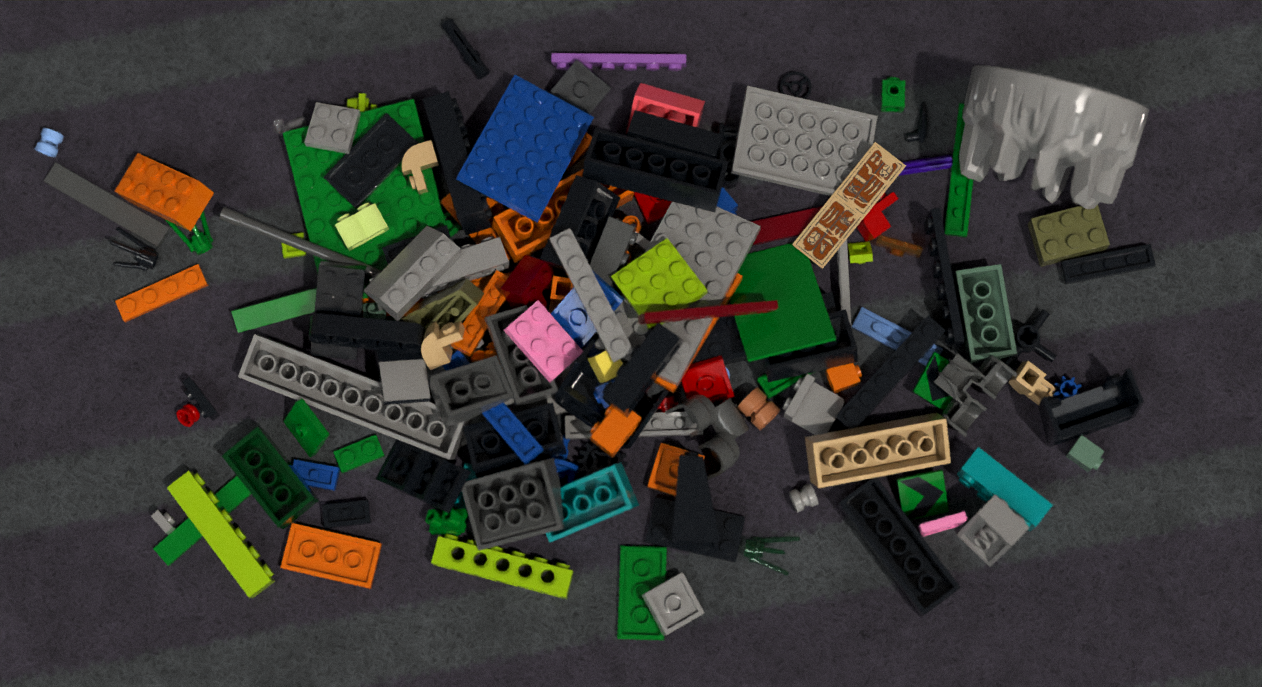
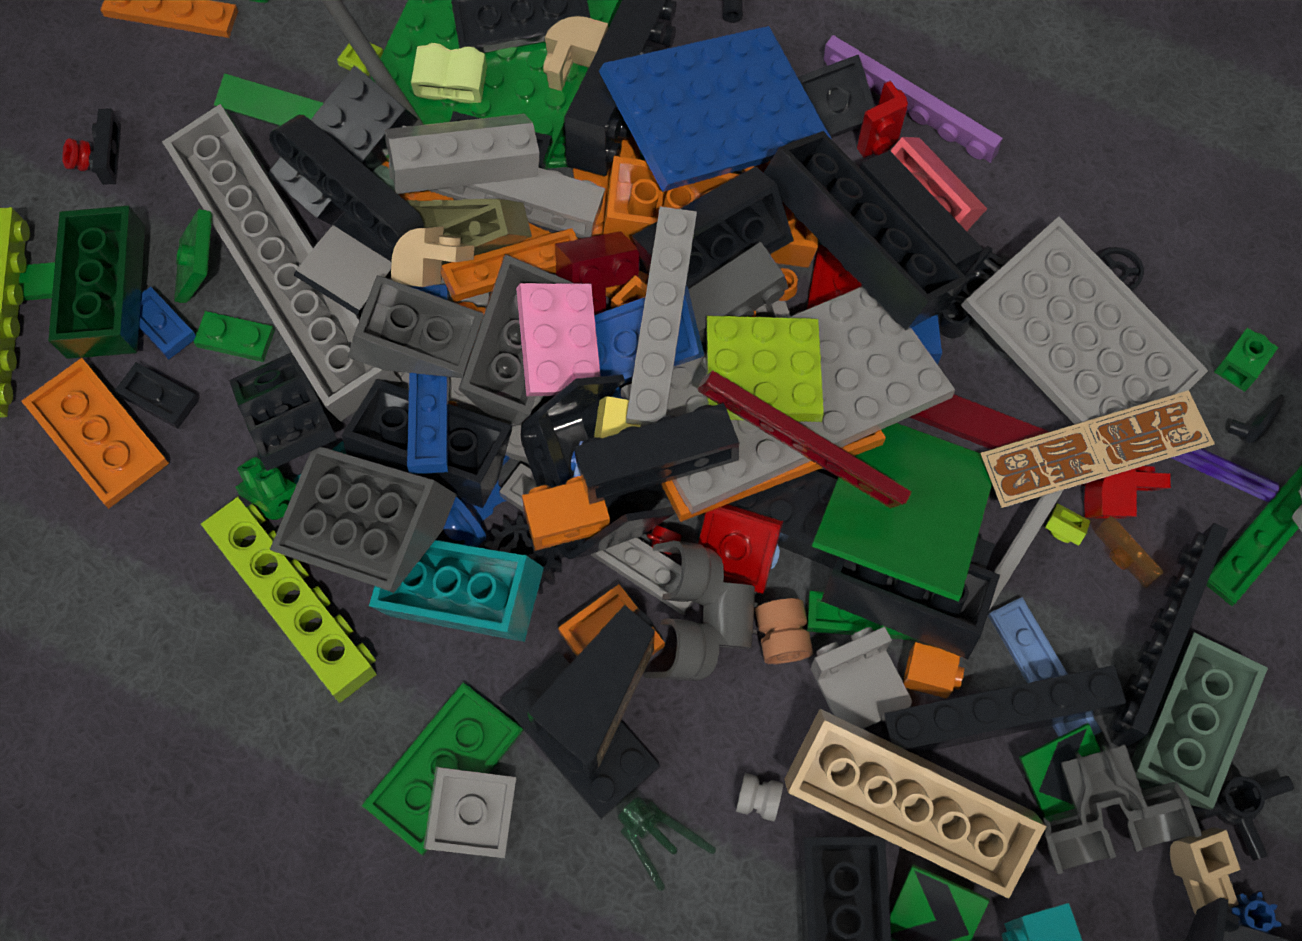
camera: 30 degrees right, 10 degrees down
(617, 93) = (884, 122): none -> red bracket

